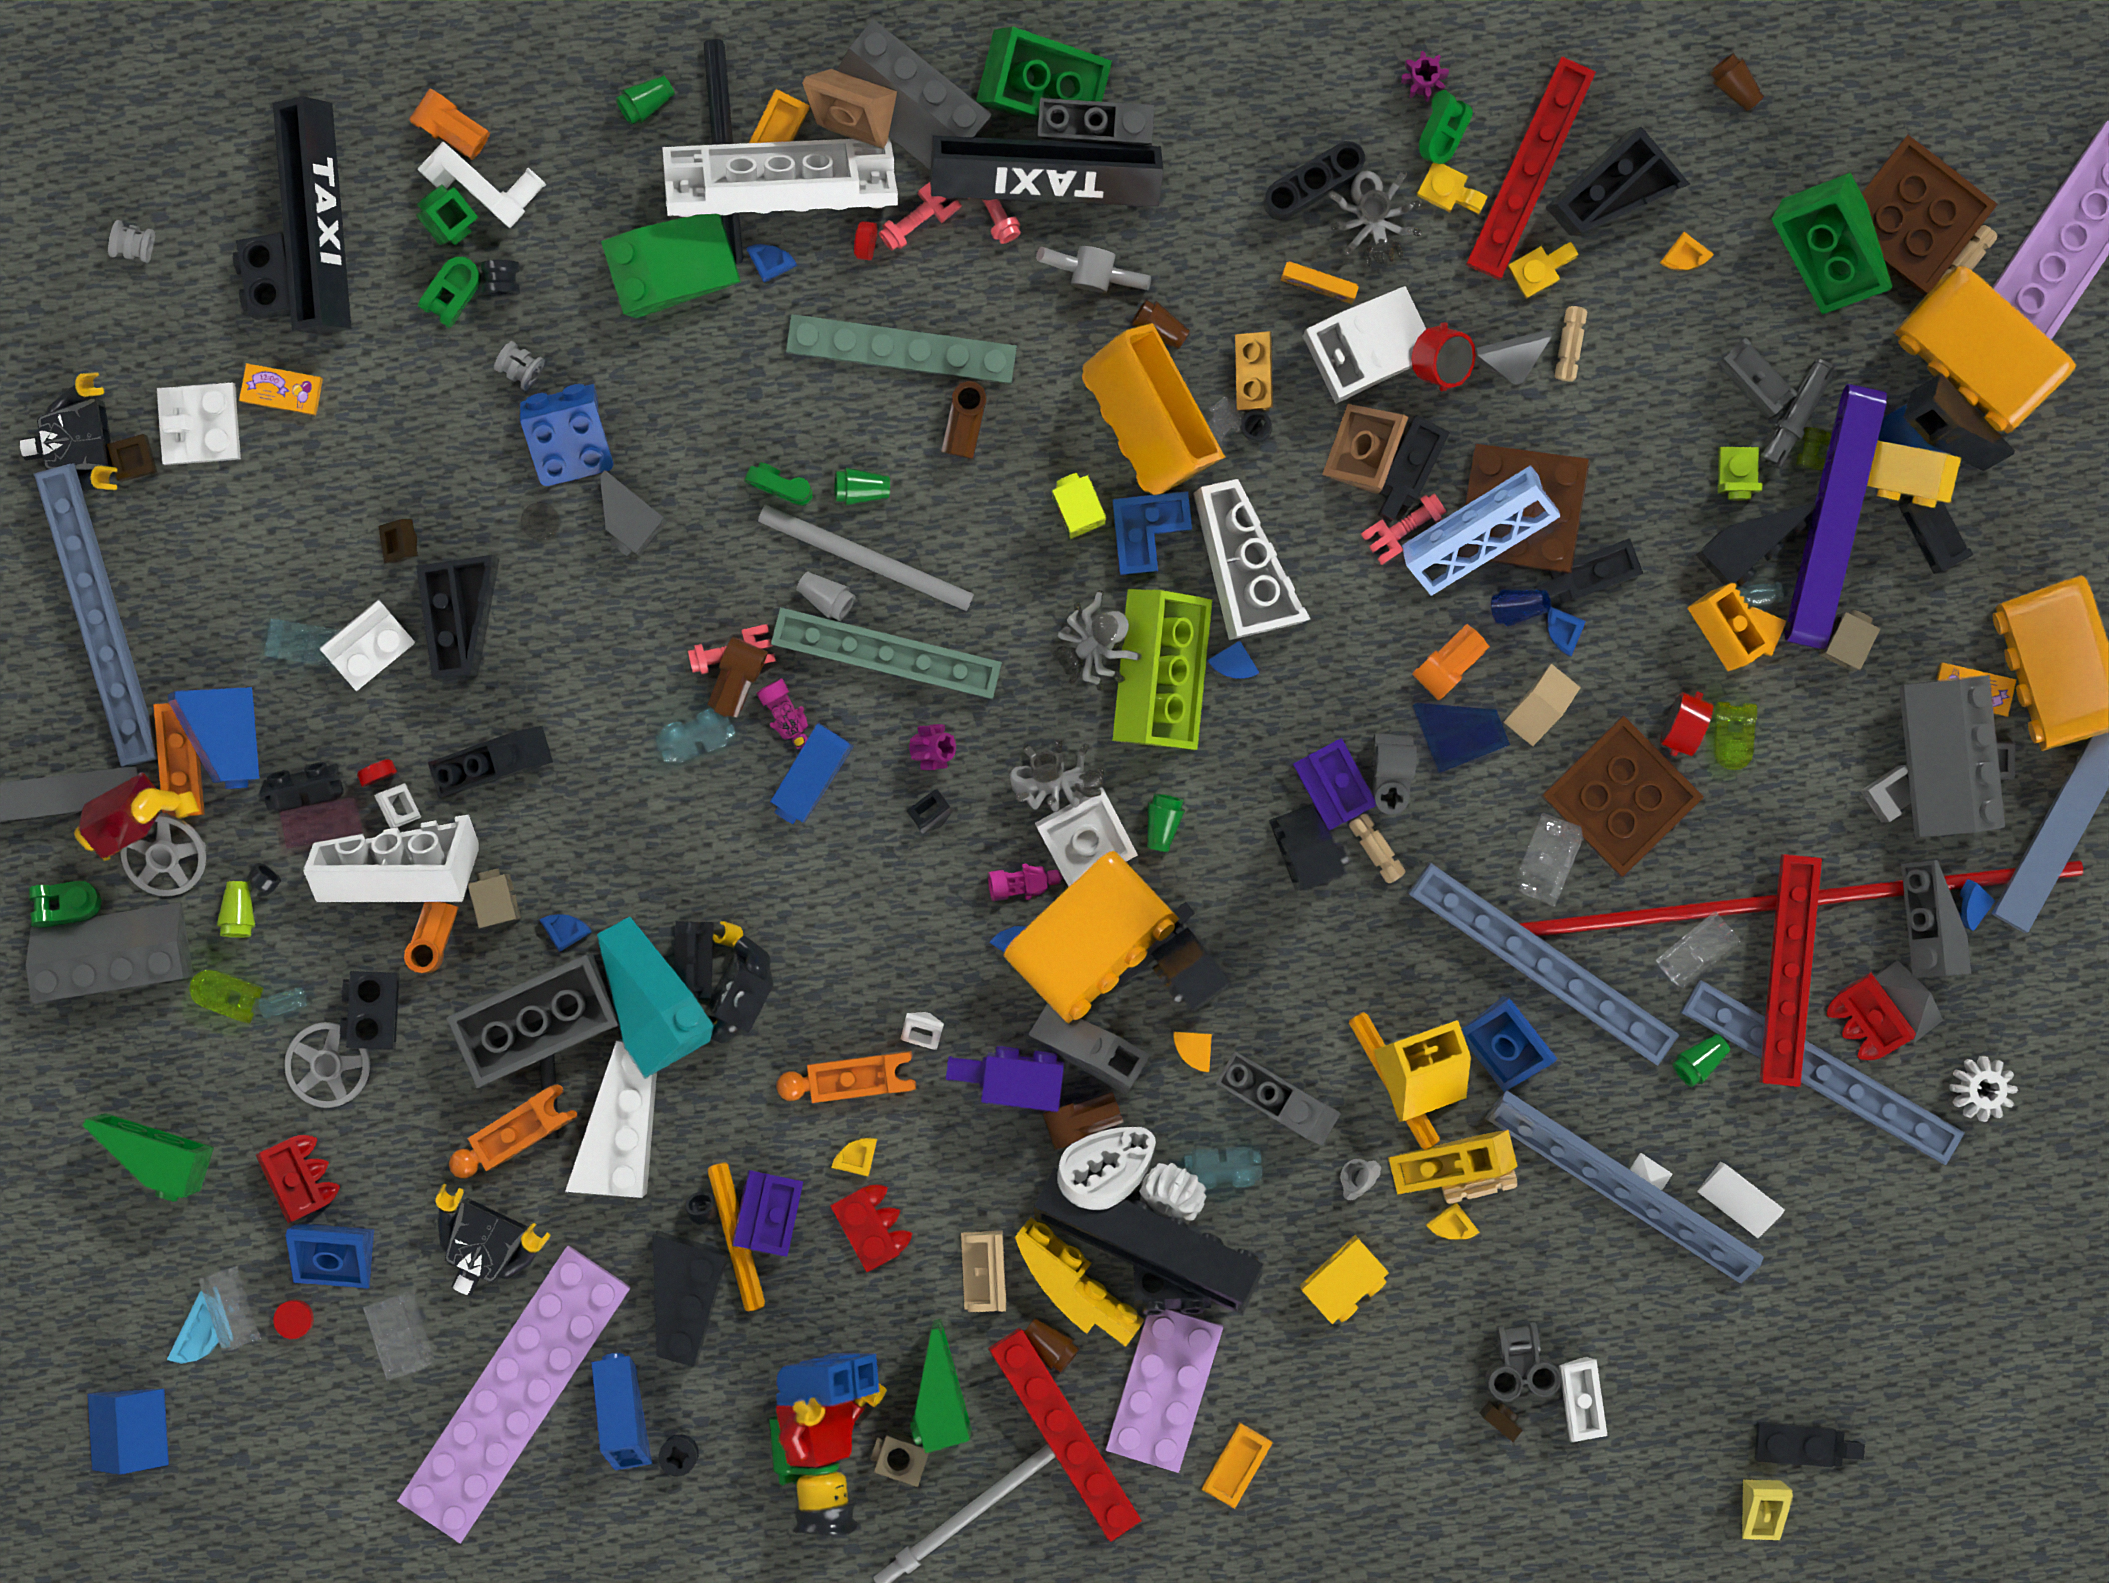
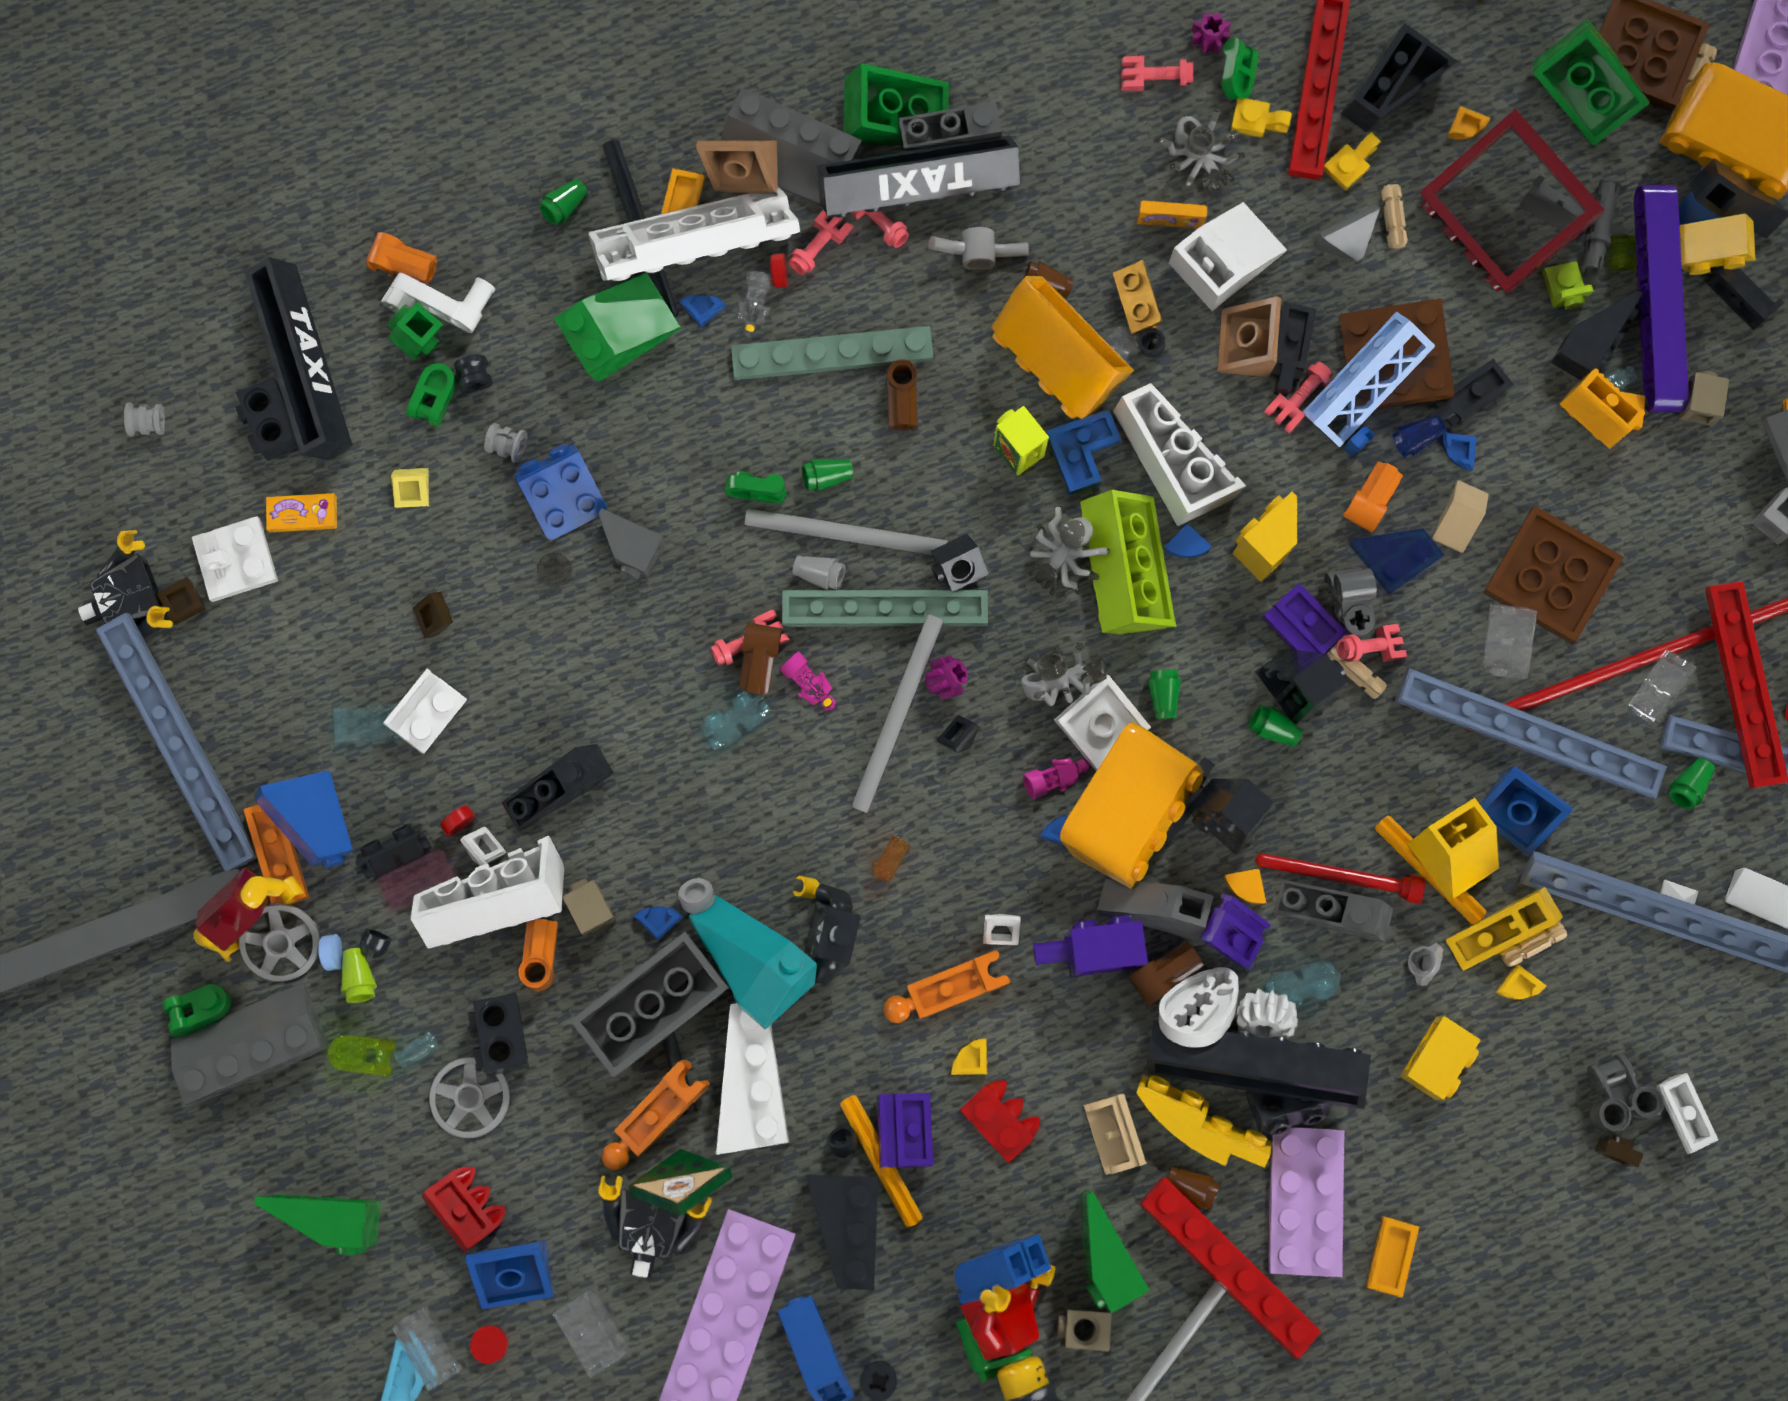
camera: 20 degrees left, 10 degrees down
(214, 879) = (330, 952): none -> light blue tile
(405, 389) = (410, 487): none -> light yellow slope
(456, 613) = (498, 661): black wedge -> none
(522, 1210) = (680, 1182): none -> dark green tile
(610, 915) = (696, 895): none -> light grey tile
(694, 956) = (780, 910): black hinge -> none
(810, 774) = (846, 724): blue slope -> none
(824, 927) = (890, 859): none -> clear orange pin
(826, 277) = (752, 310): none -> clear piece
(870, 773) = (897, 713): none -> light grey piece
(976, 625) = (969, 569): none -> black brick
(1165, 1096) = (1235, 931): none -> dark purple plate
(1271, 887) = (1274, 726): none -> green cone
(1321, 686) = (1269, 541): none -> yellow slope
(1323, 165) = (1148, 122): black beam -> none
(1332, 103) = (1140, 73): none -> coral hinge
(1363, 1093) = (1409, 887): none -> red piece
(1374, 825) = (1351, 647): none -> coral hinge
(1443, 356) = (1293, 247): piece -> none
(1456, 593) = (1359, 441): none -> blue tile
(1686, 724) = (1590, 498): red piece -> none
(1734, 749) = (1631, 513): clear neon green plate -> none
(1754, 341) = (1552, 163): none -> dark red window

